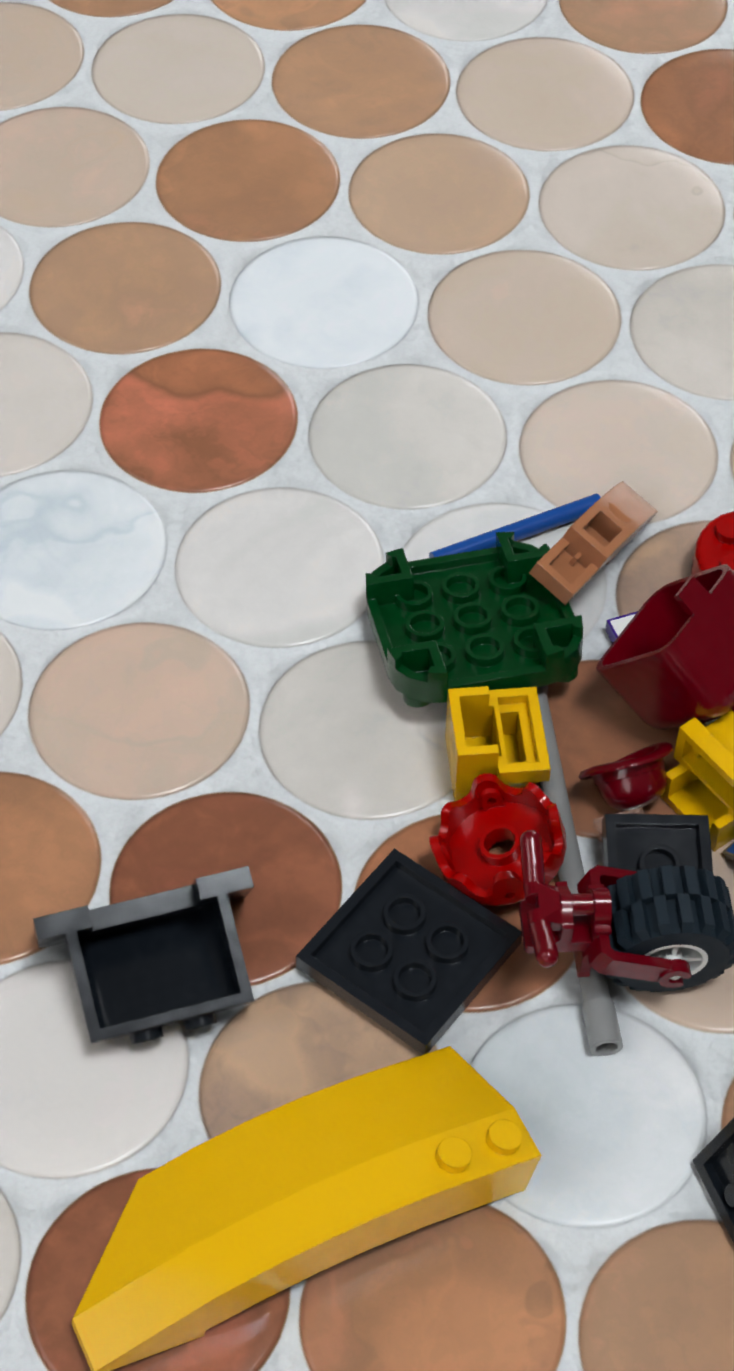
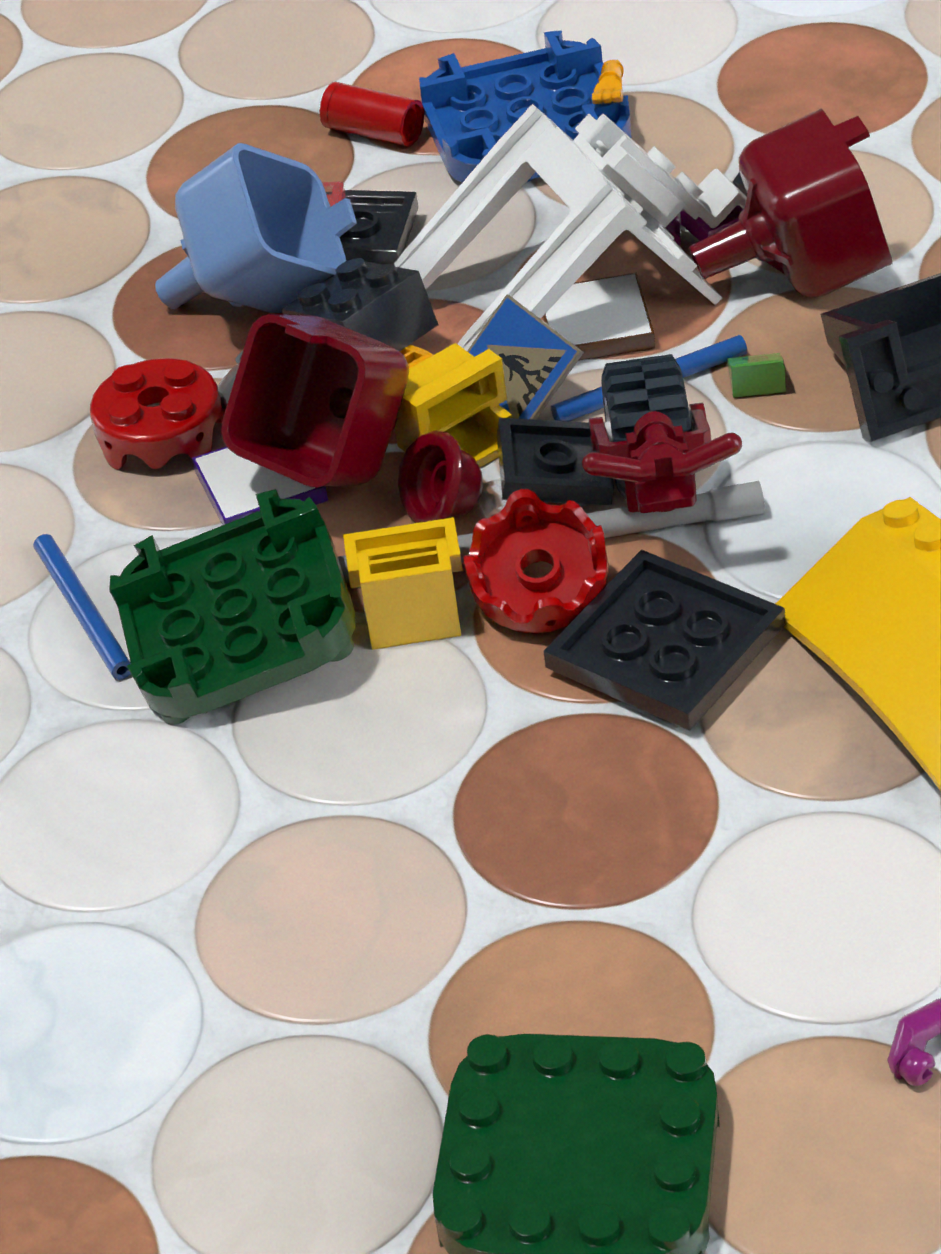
camera: 85 degrees left, 10 degrees down
(156, 957) = (694, 820): black windscreen -> none
(592, 541) = (130, 501): nougat slope -> none

